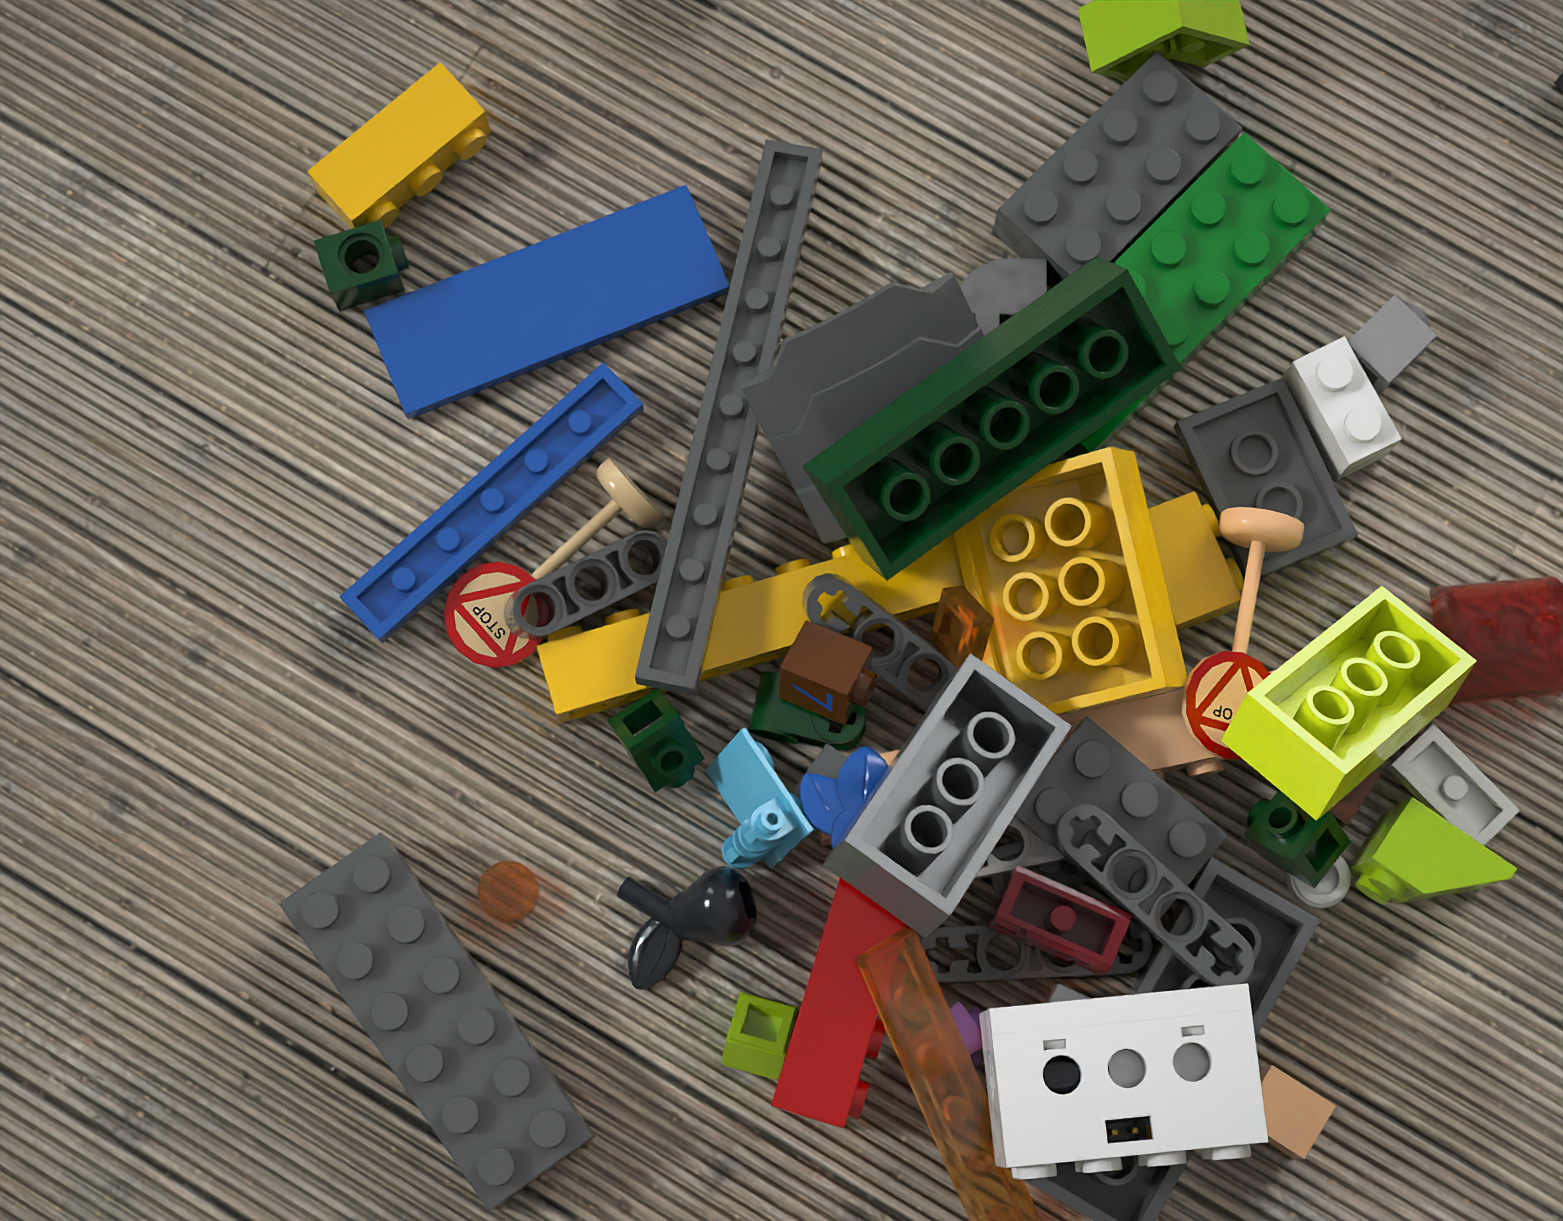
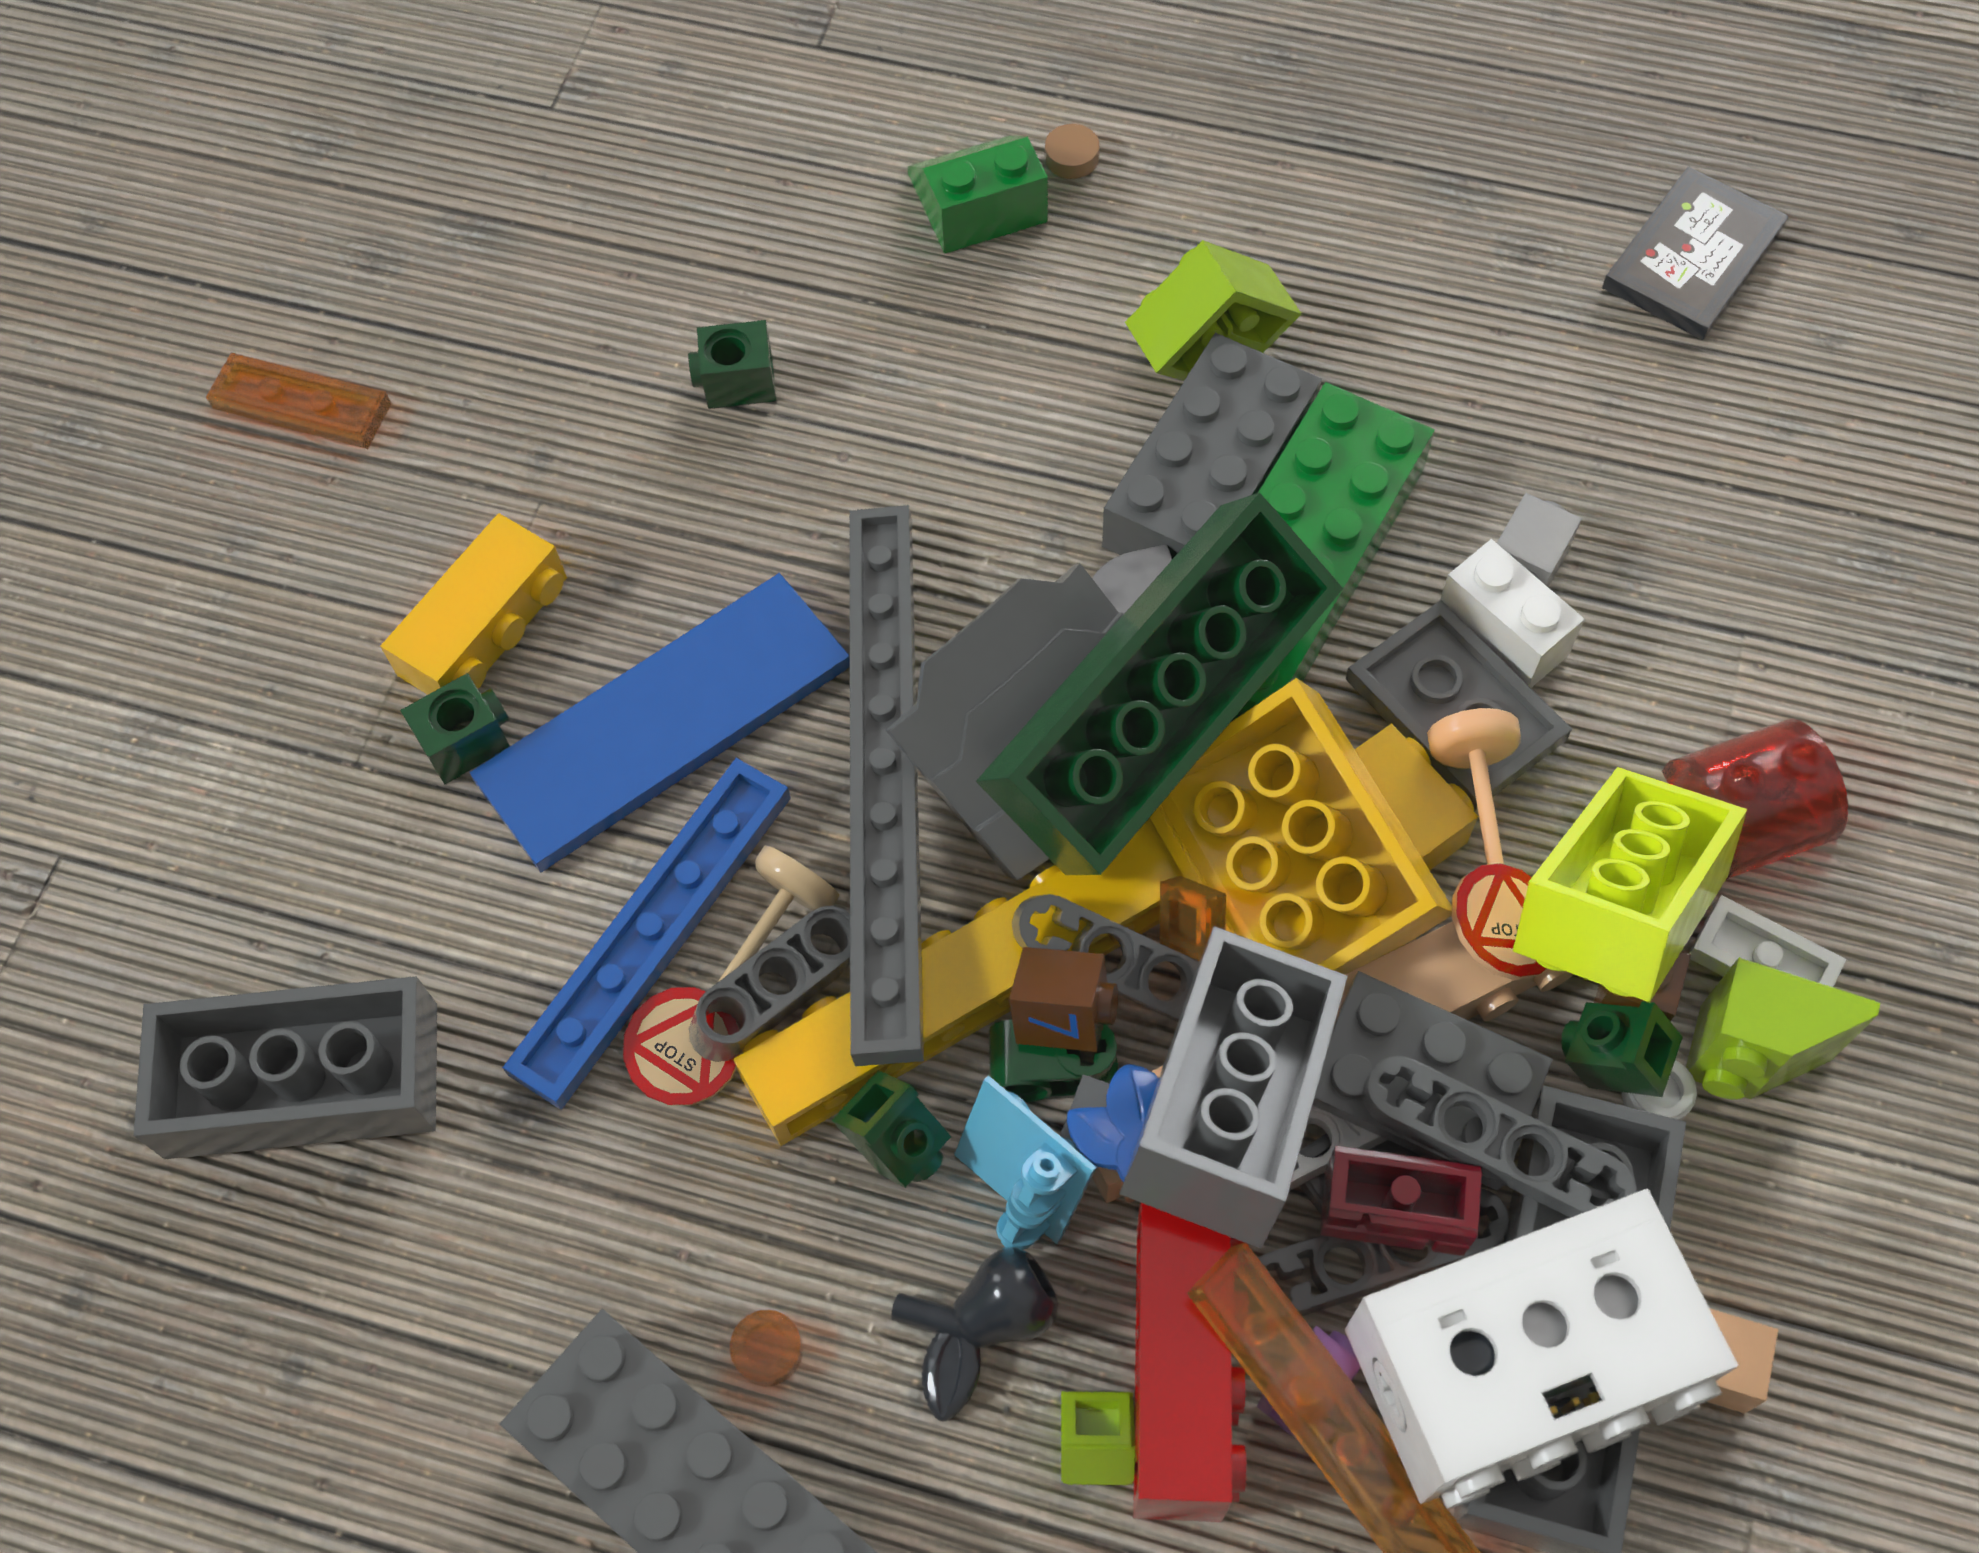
camera: 10 degrees left, 15 degrees down
(158, 550) = (287, 1068): none -> dark grey brick

